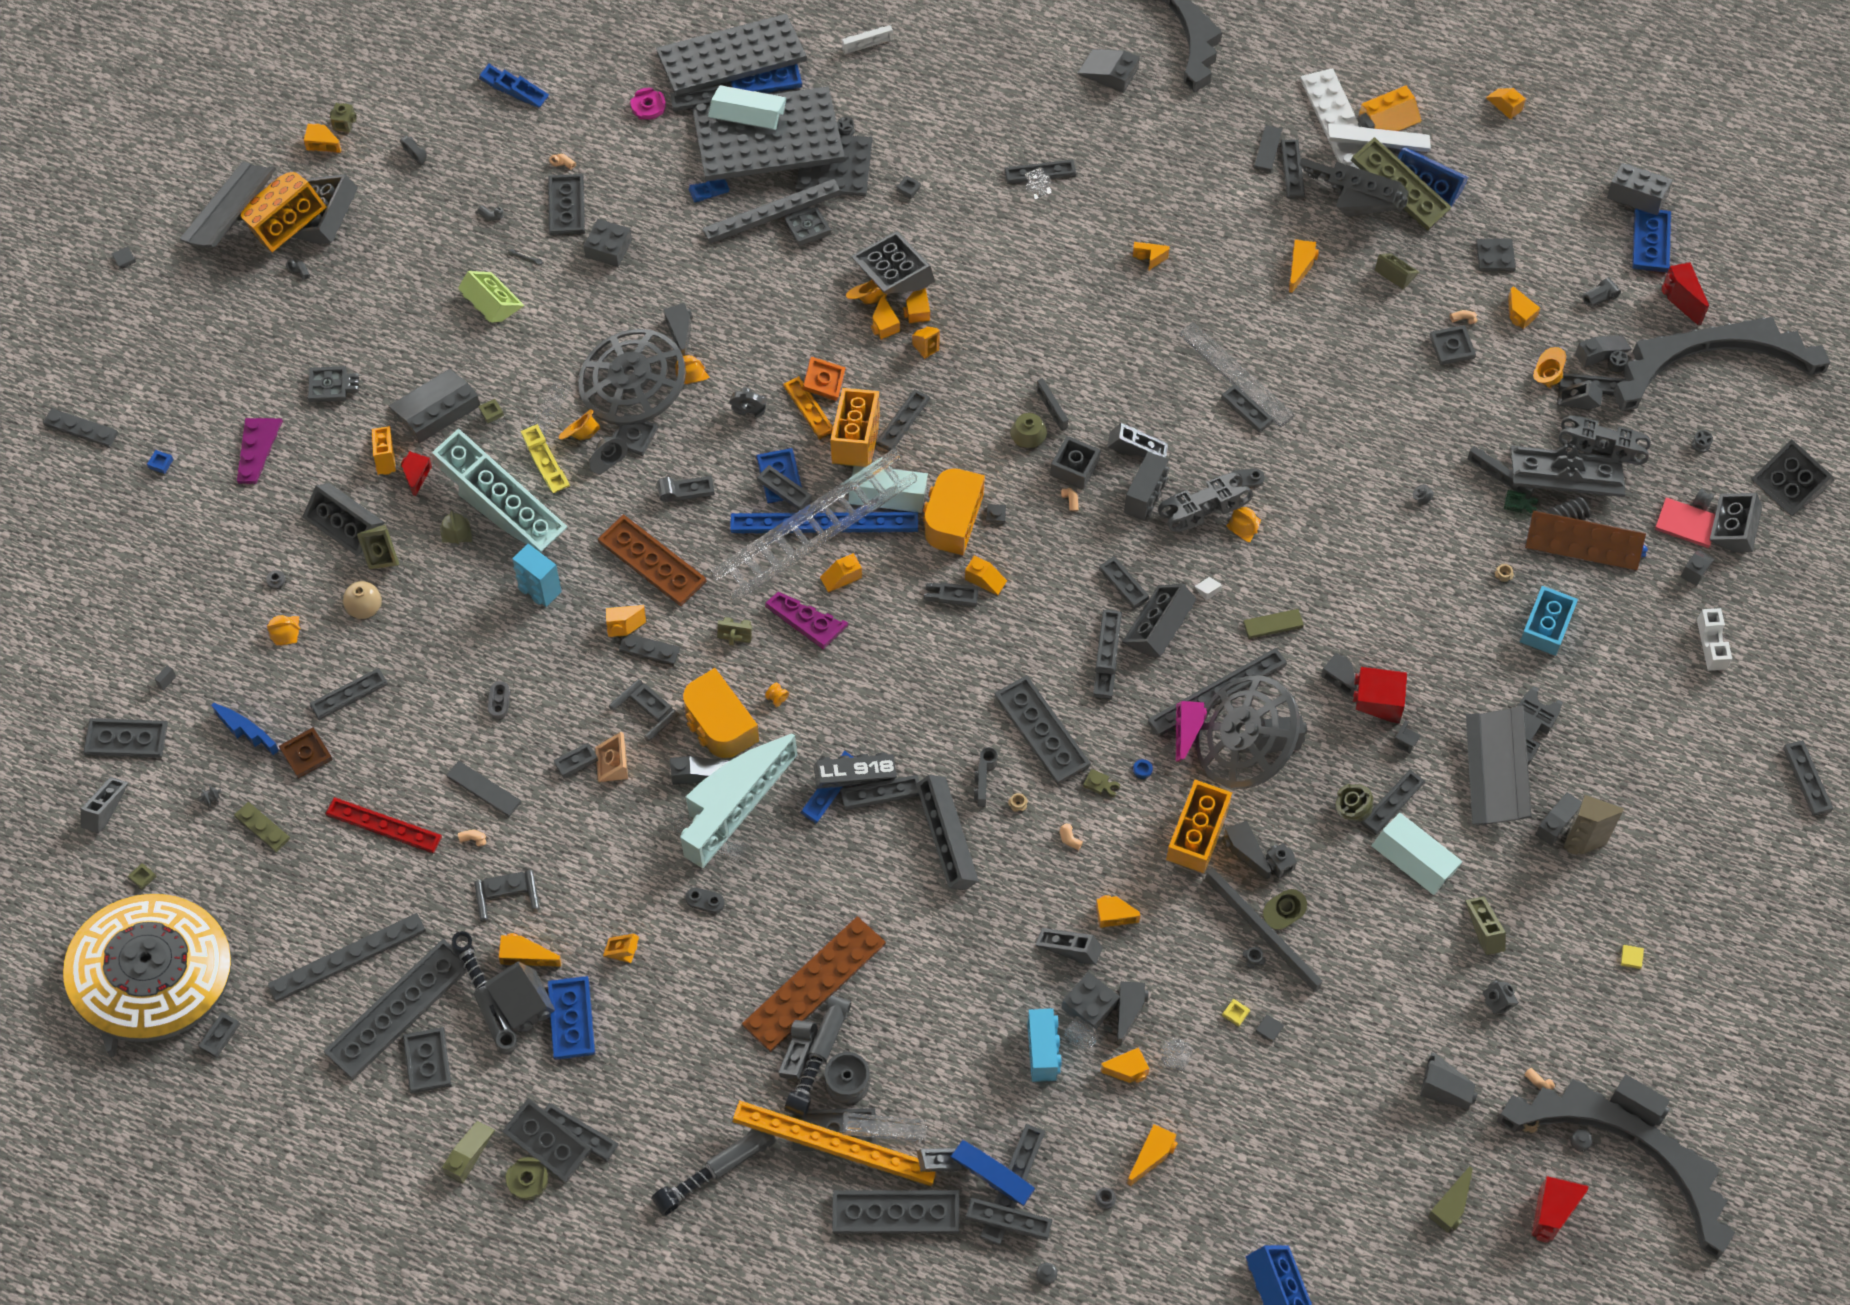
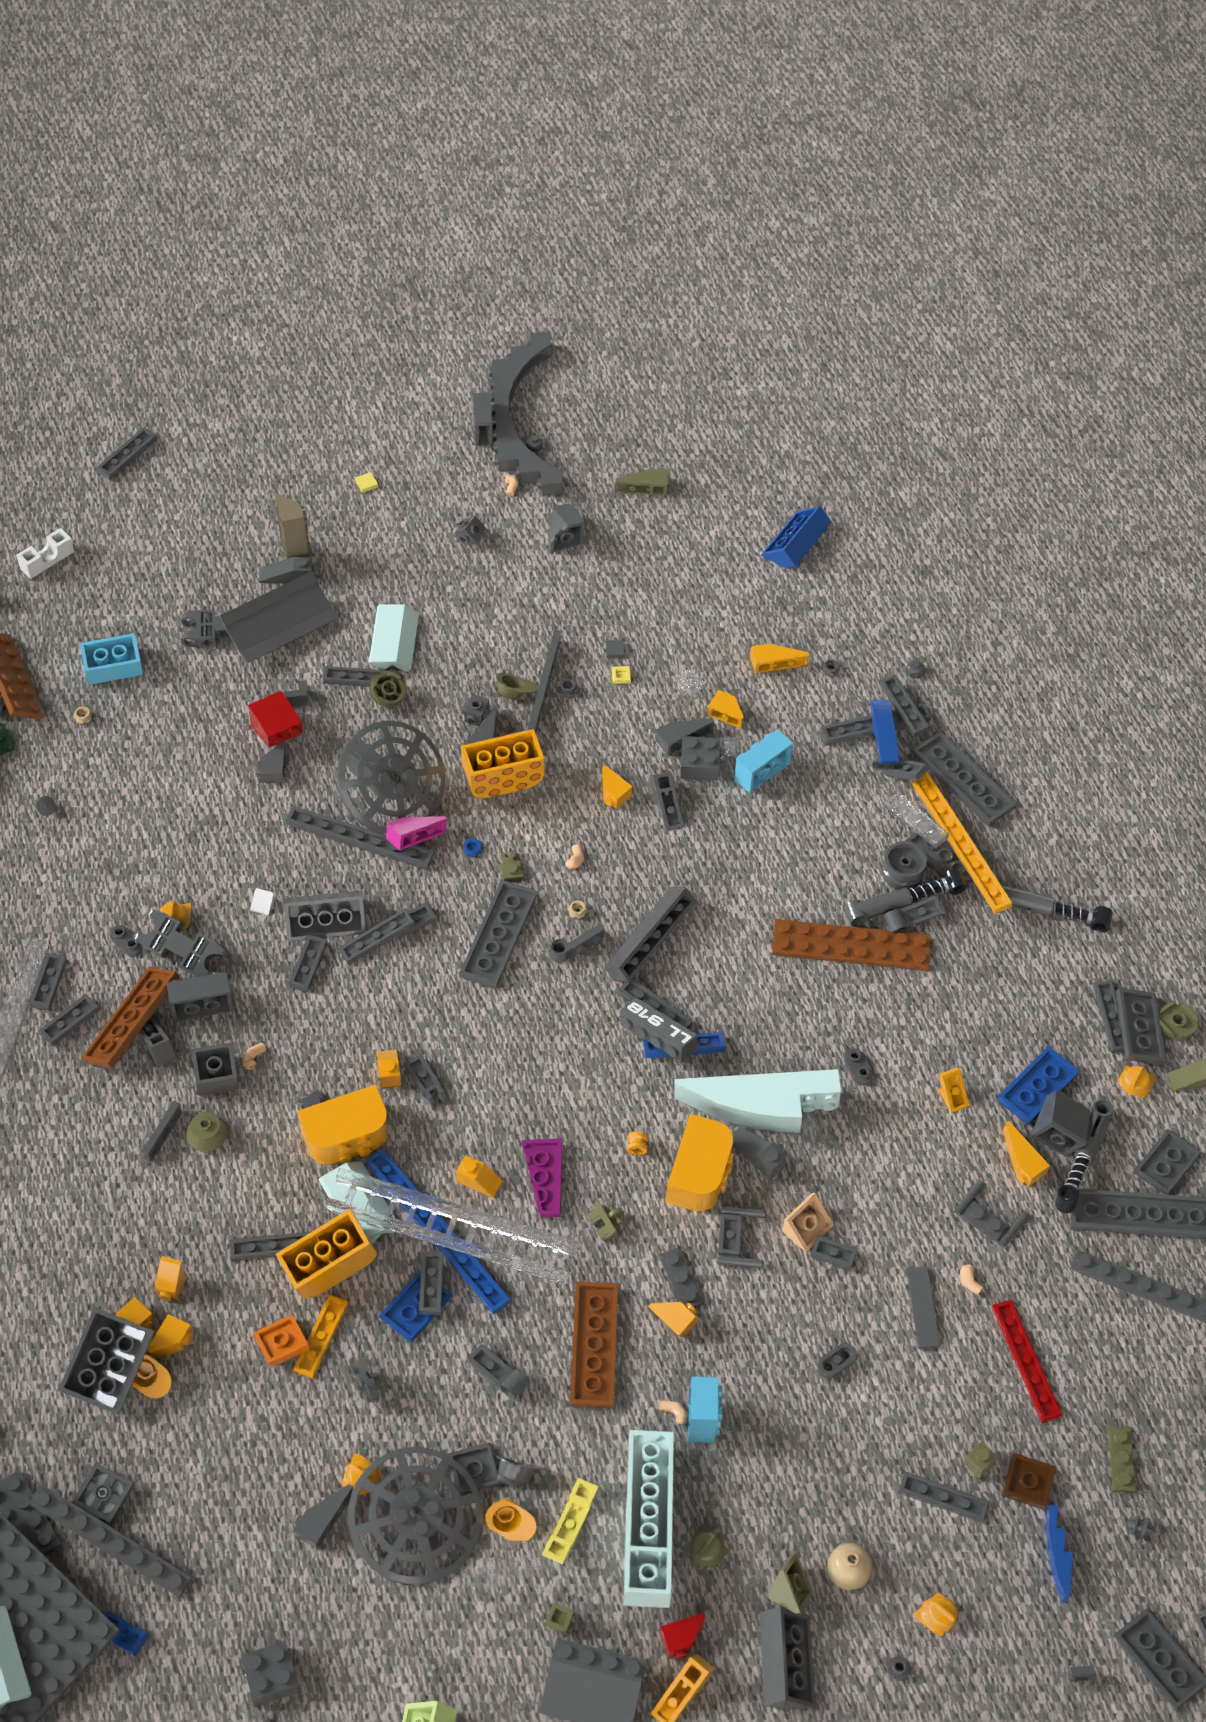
camera: 130 degrees left, 5 degrees down
(346, 730) = (980, 1459): none -> olive brick
(508, 1099) = (1136, 1081): none -> light orange piece
(566, 576) = (676, 1408): none -> light nougat arm
(1168, 437) = (129, 1018): none -> dark orange plate
(1200, 402) = (69, 1020): none -> dark grey plate
(1273, 623) = (260, 839): olive tile -> none
(1487, 926) = (417, 568): olive slope -> none
(1555, 1205) = (601, 424): red slope -> none

